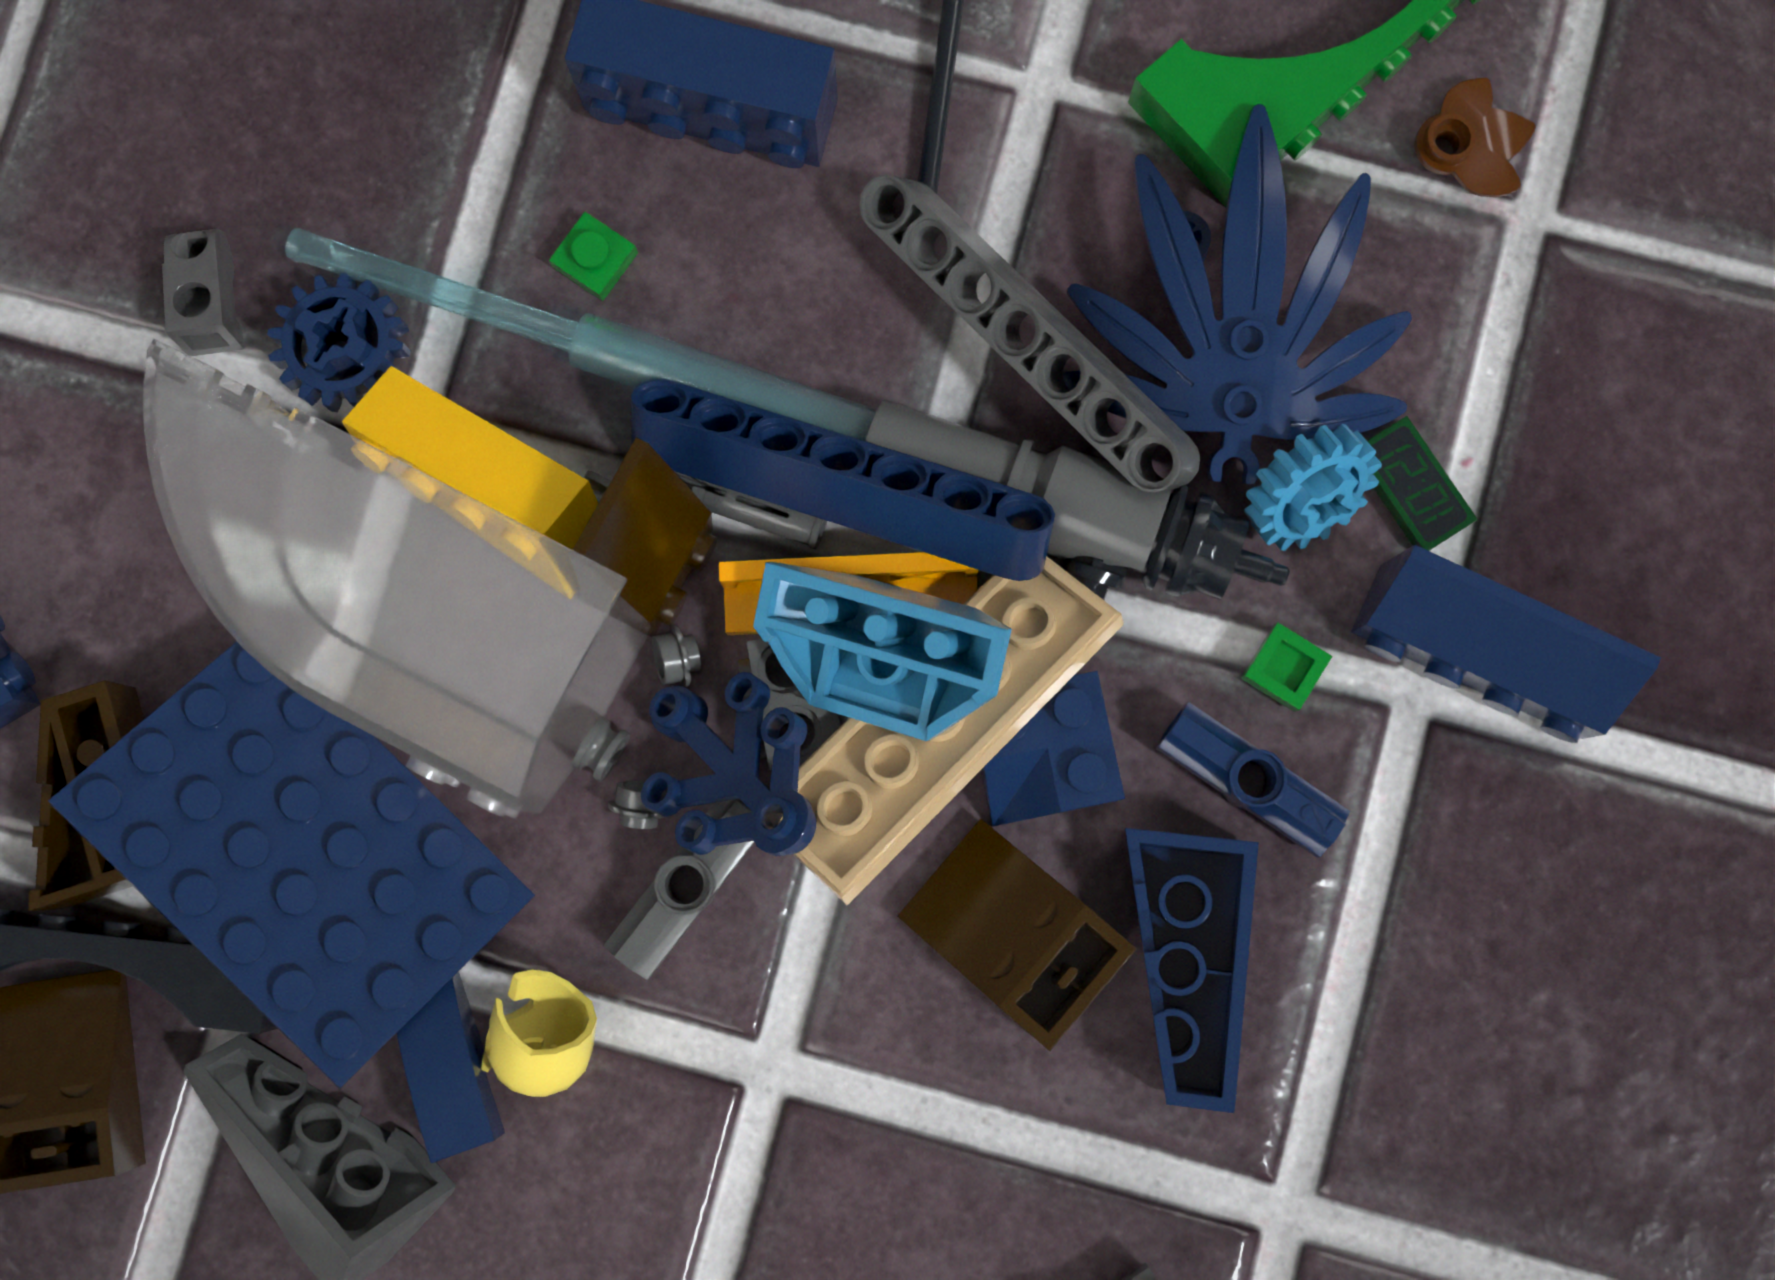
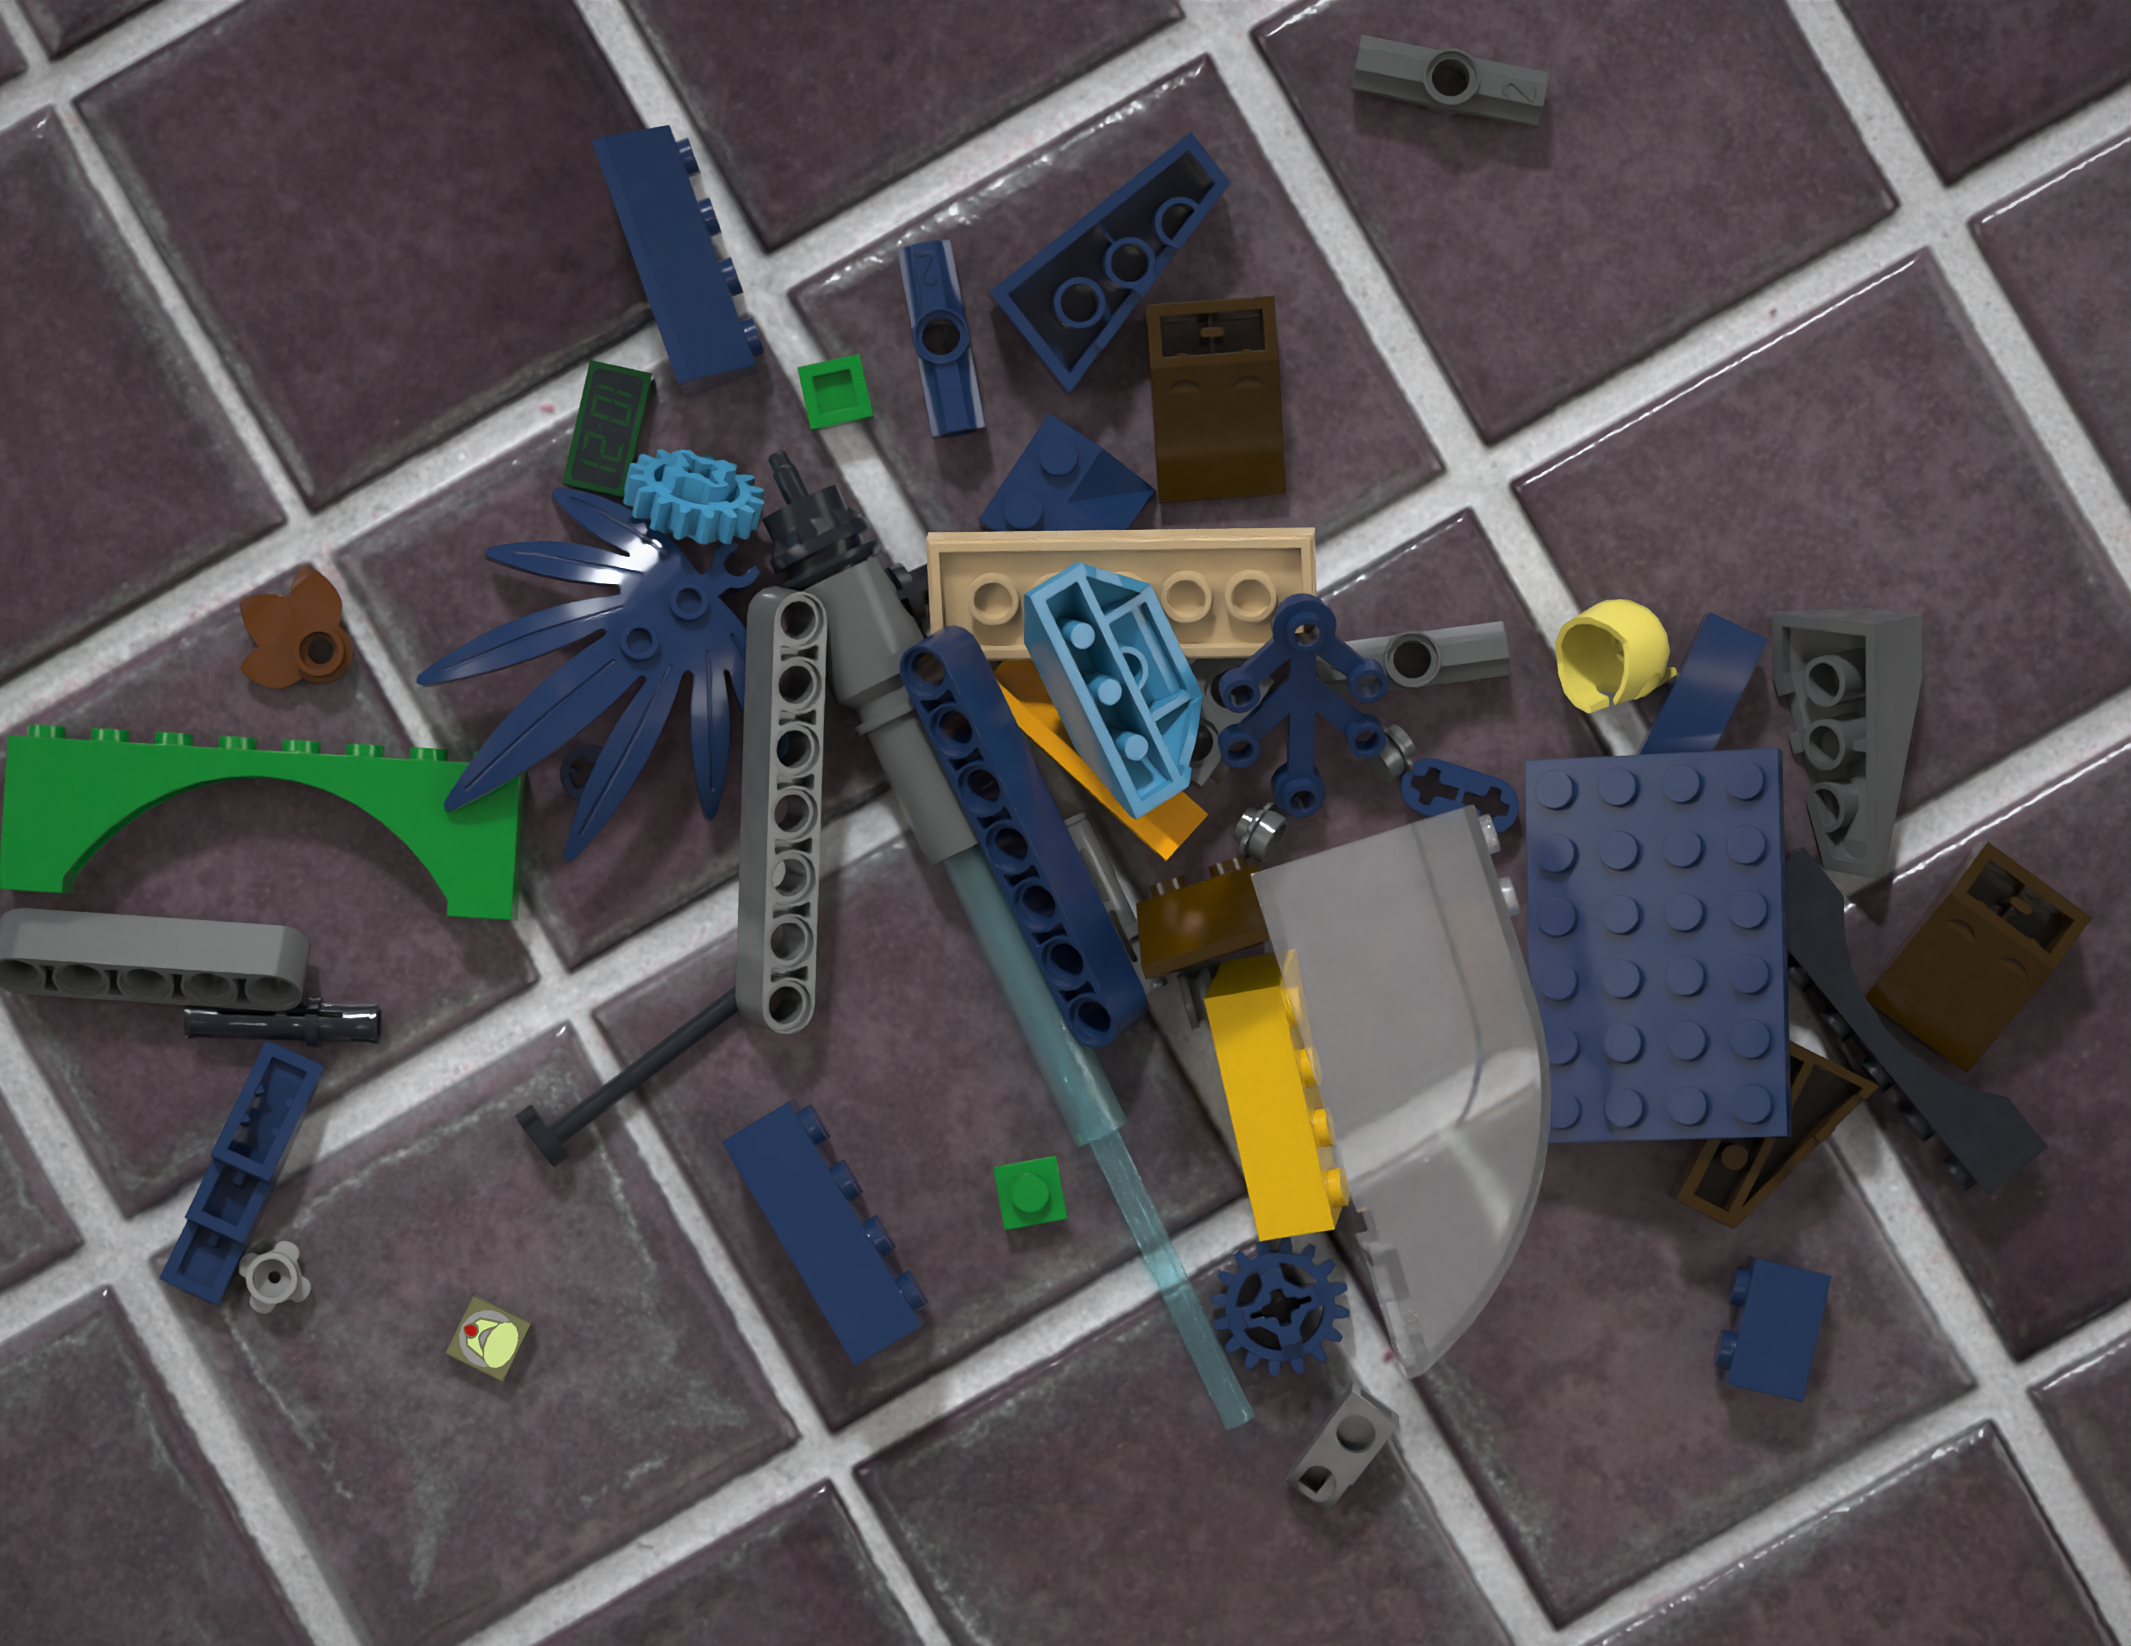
camera: 130 degrees left, 5 degrees up
(565, 836) = (1462, 780): none -> dark blue beam
(601, 749) = (1377, 816): dark grey bush -> none

